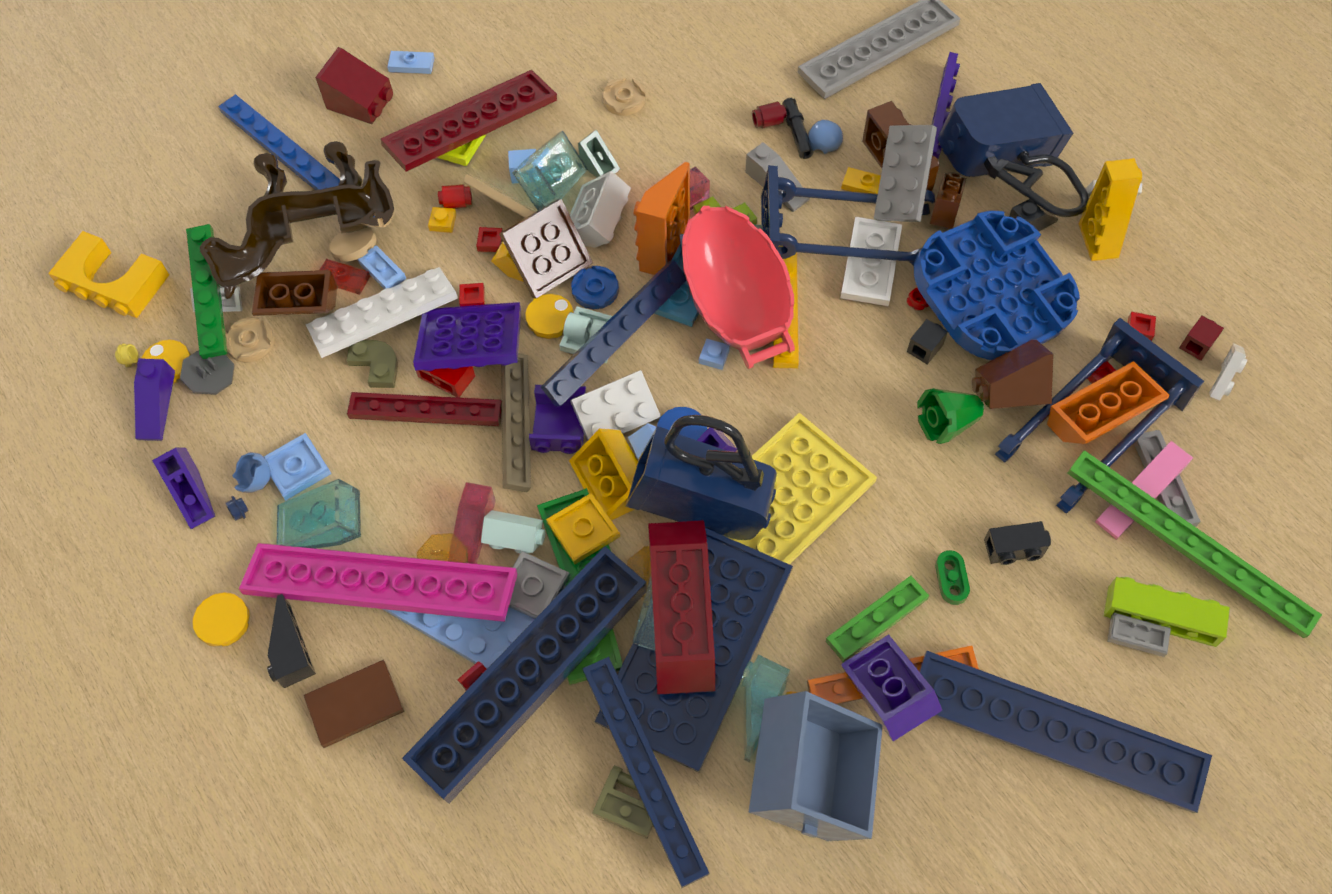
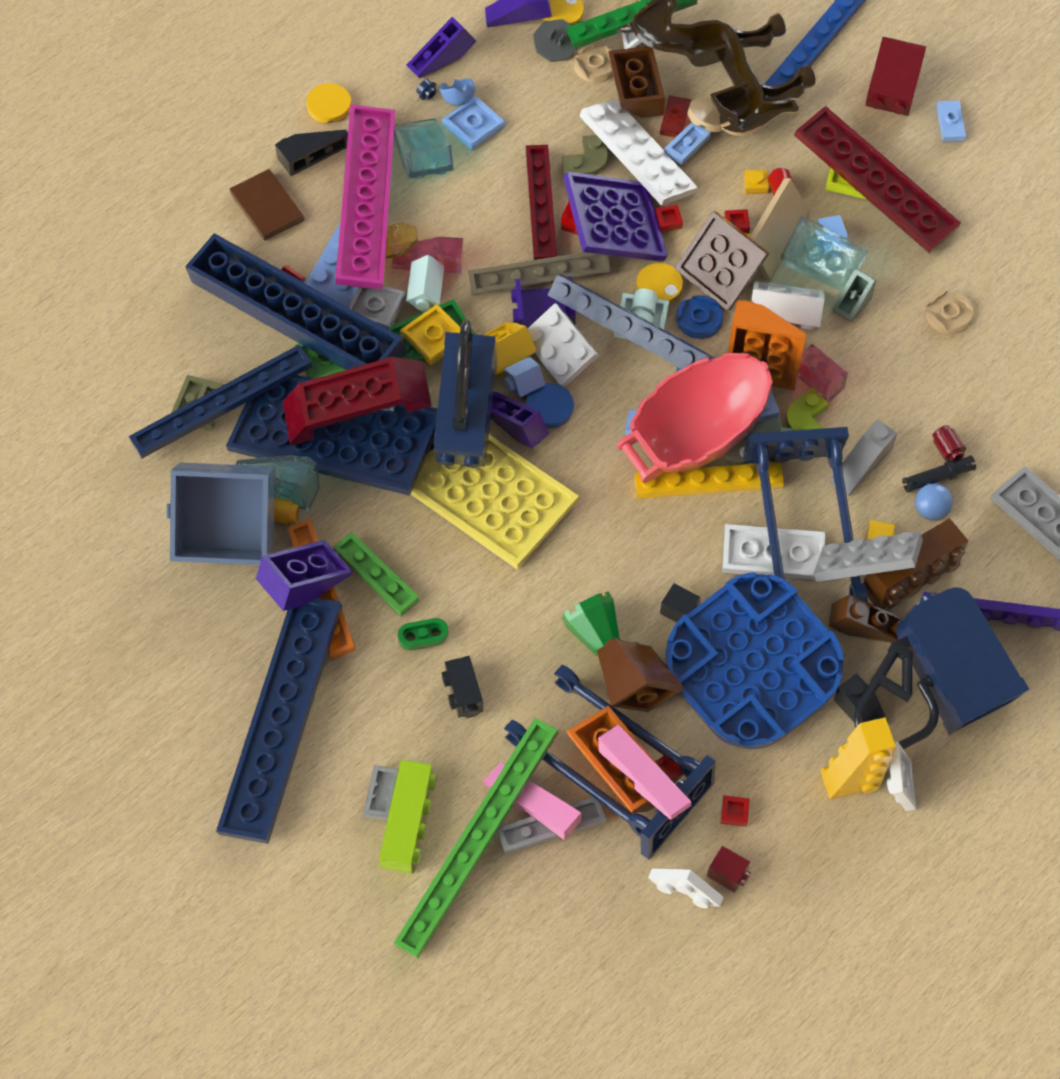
camera: 80 degrees right, 0 degrees up
(1143, 372) = (647, 776): none -> bright pink slope

